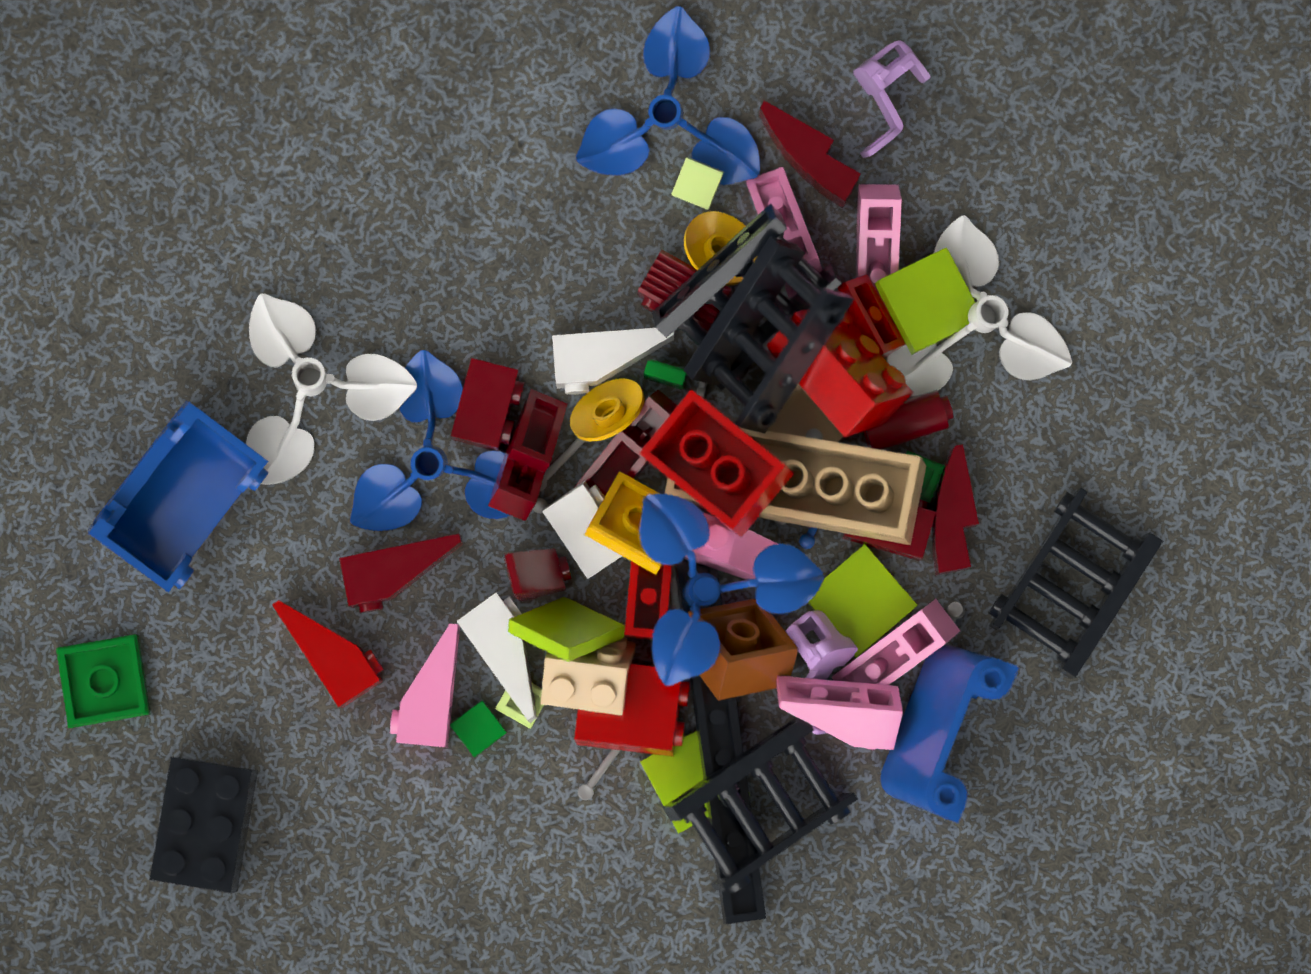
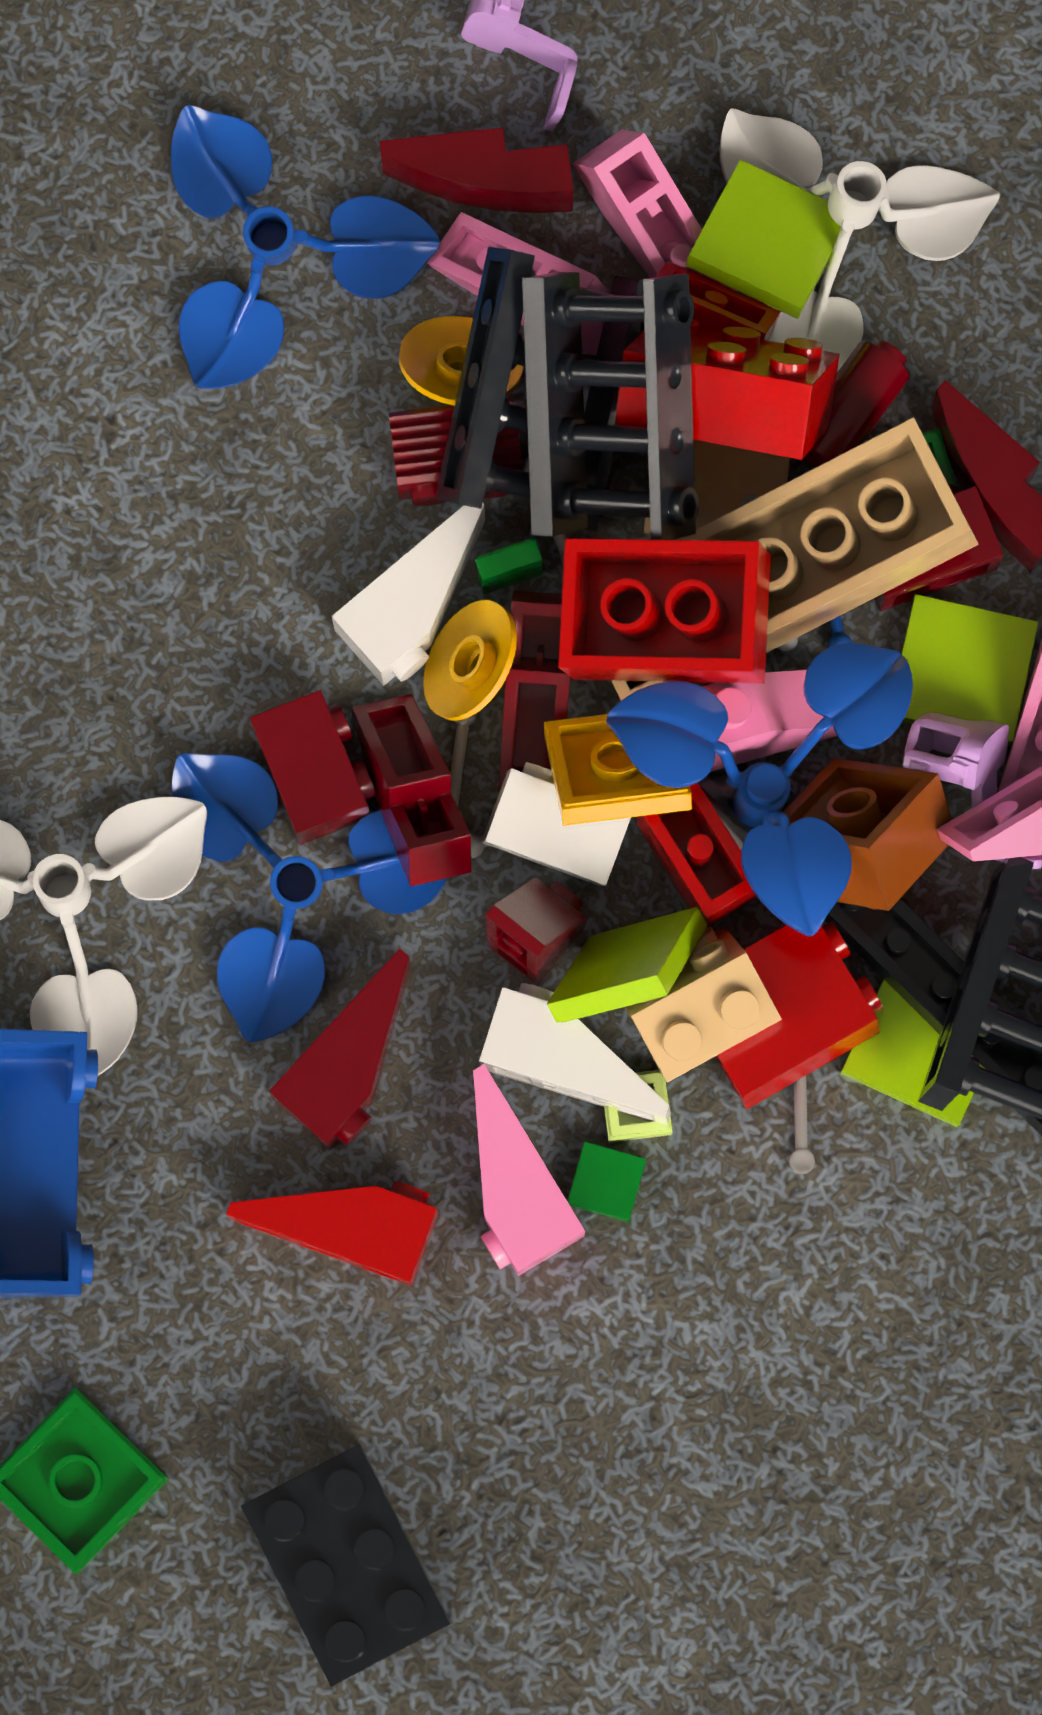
camera: 35 degrees left, 5 degrees down
(697, 183) = (370, 306): yellowish green tile -> none

